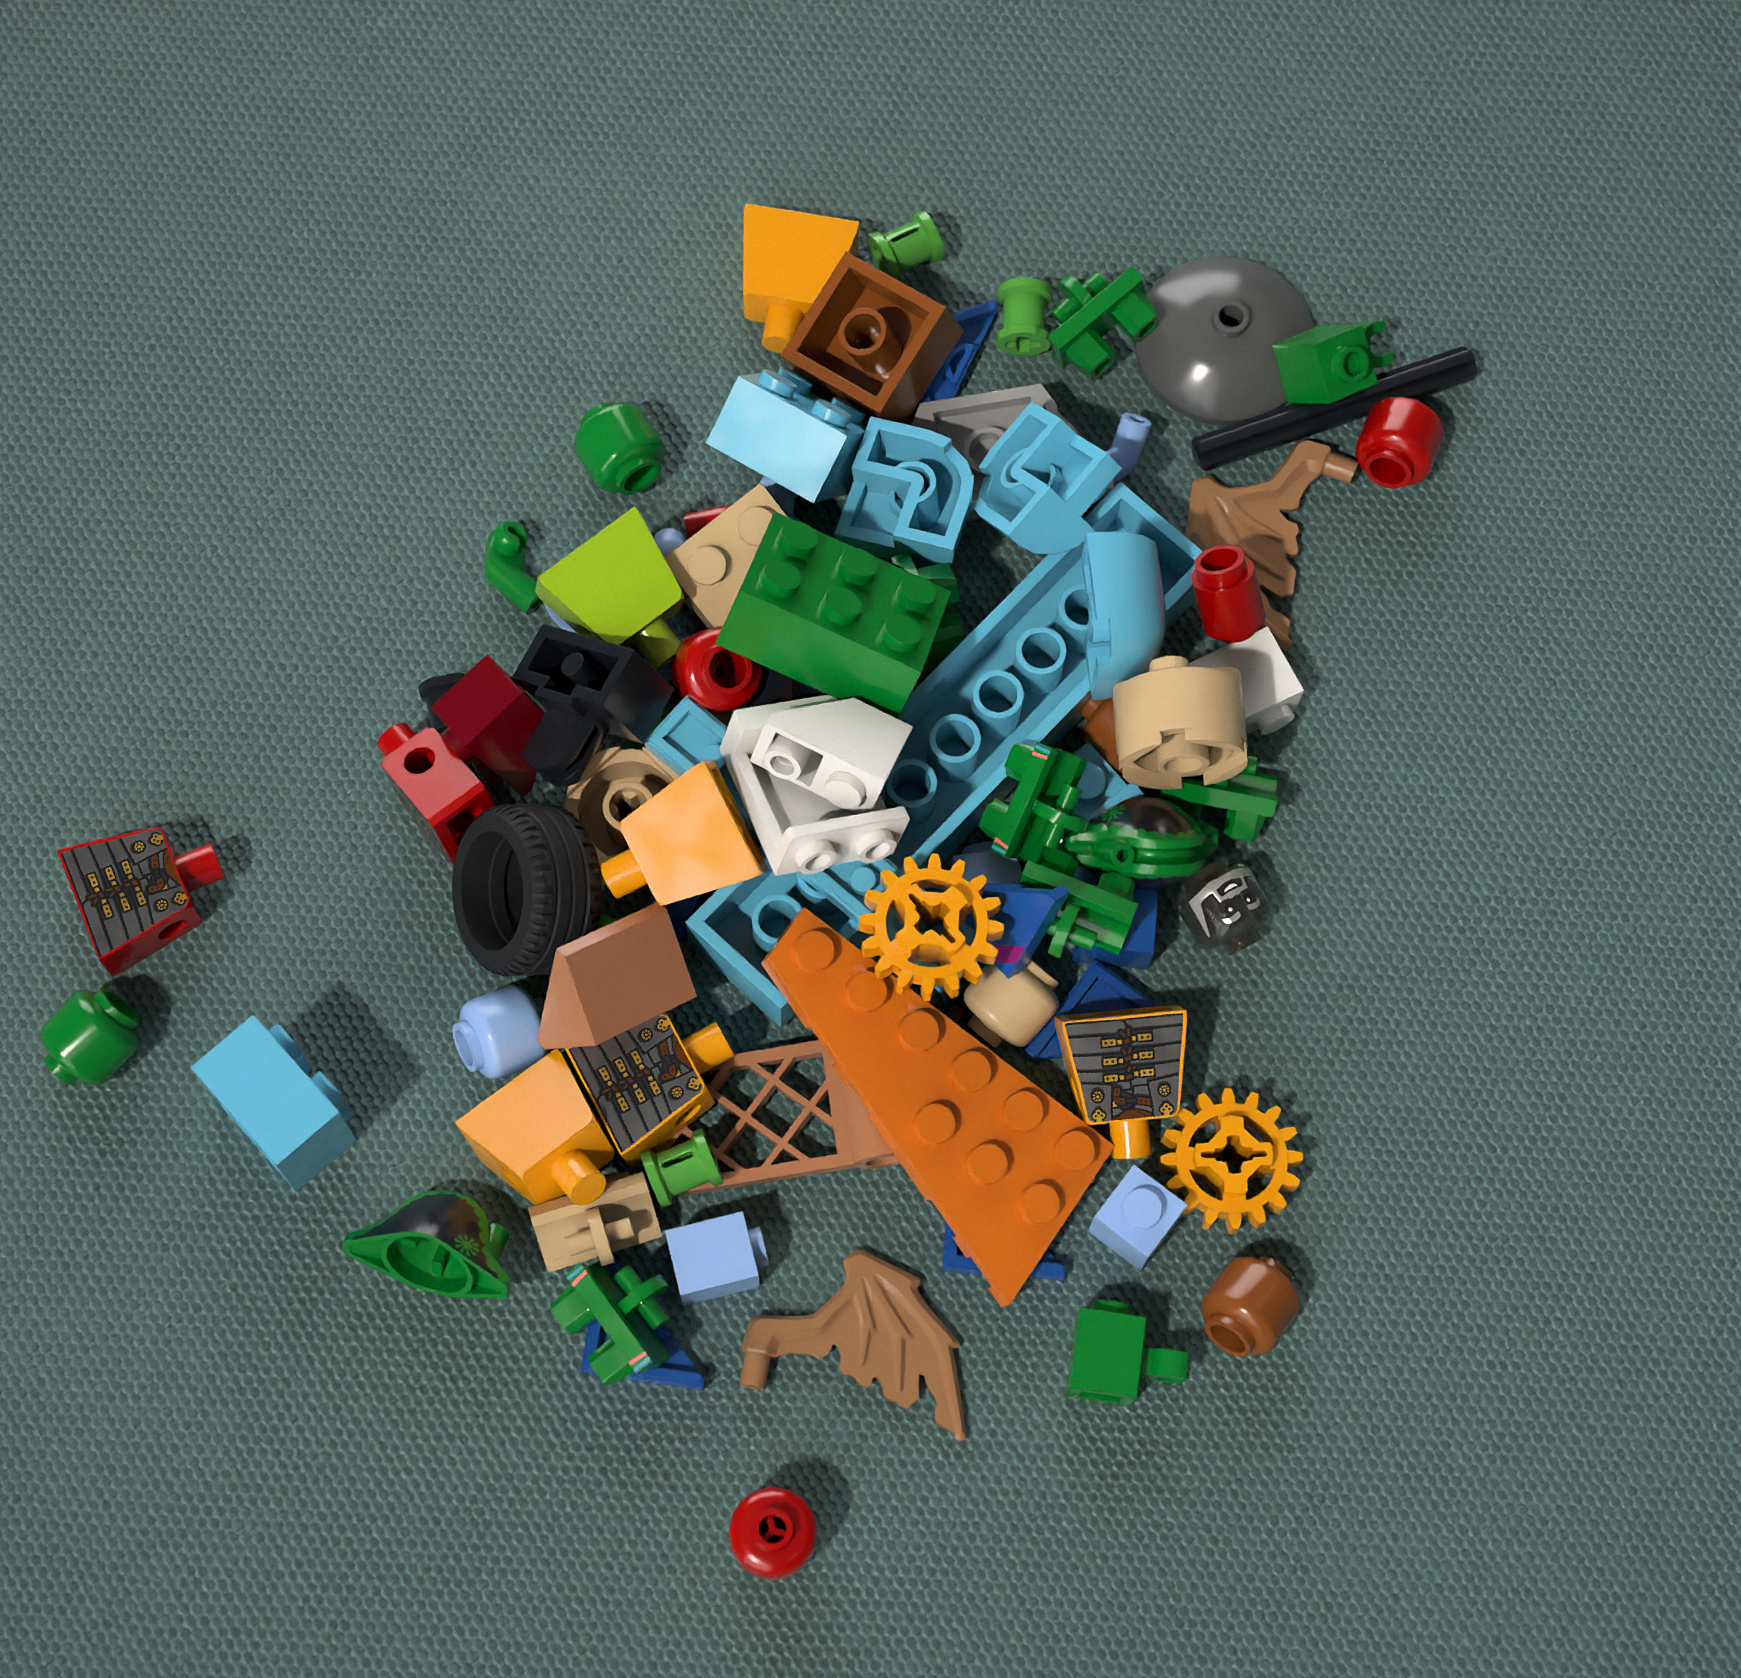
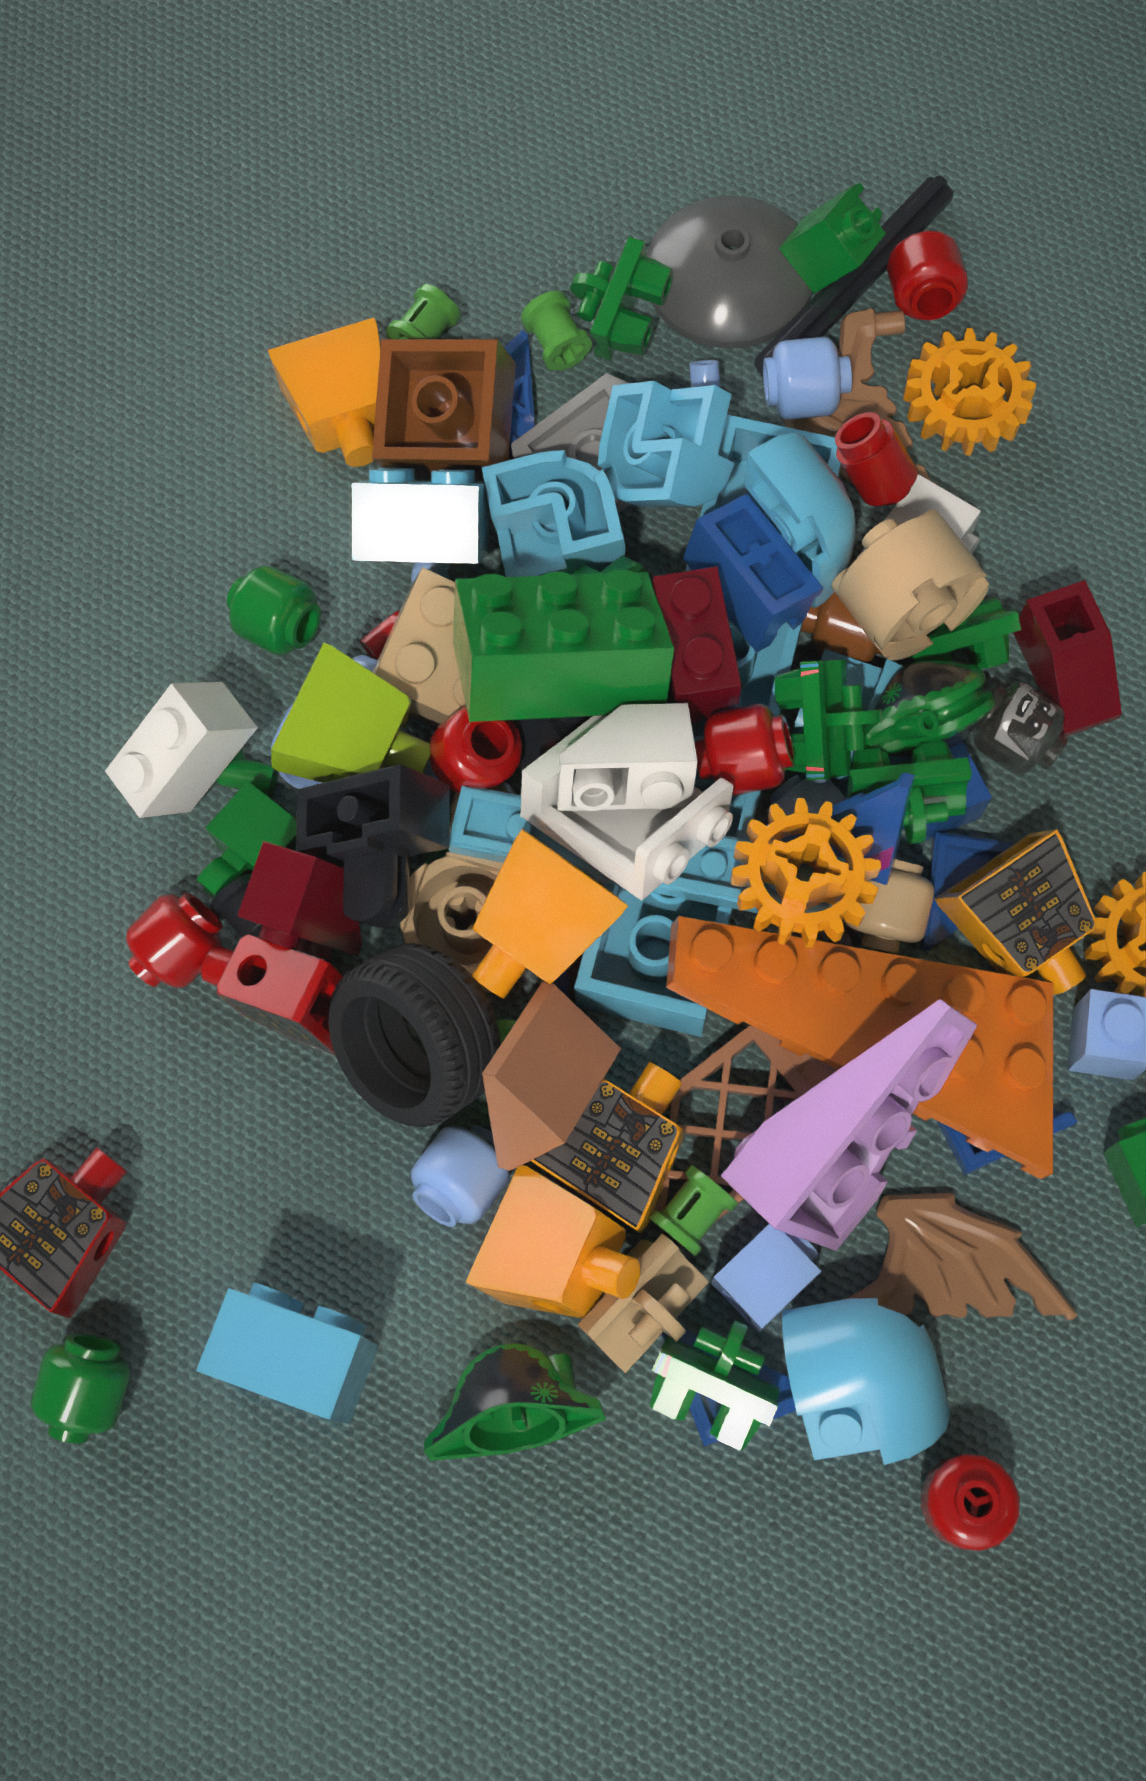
camera: 20 degrees left, 0 degrees up
(371, 698) = (172, 940): none -> red head
(467, 533) = (180, 748): none -> white brick
(481, 630) = (240, 832): none -> green brick
(742, 1384) = (864, 1379): none -> medium azure brick
(820, 1177) = (821, 1156): none -> lavender wedge
(948, 794) = (746, 749): none -> red head
(957, 679) = (704, 654): none -> dark red brick
(1048, 637) = (757, 570): none -> blue hinge
(1220, 483) = (806, 378): none -> light blue head
(1307, 868) = (1071, 656): none -> dark red slope
(1355, 592) = (969, 391): none -> light orange gear

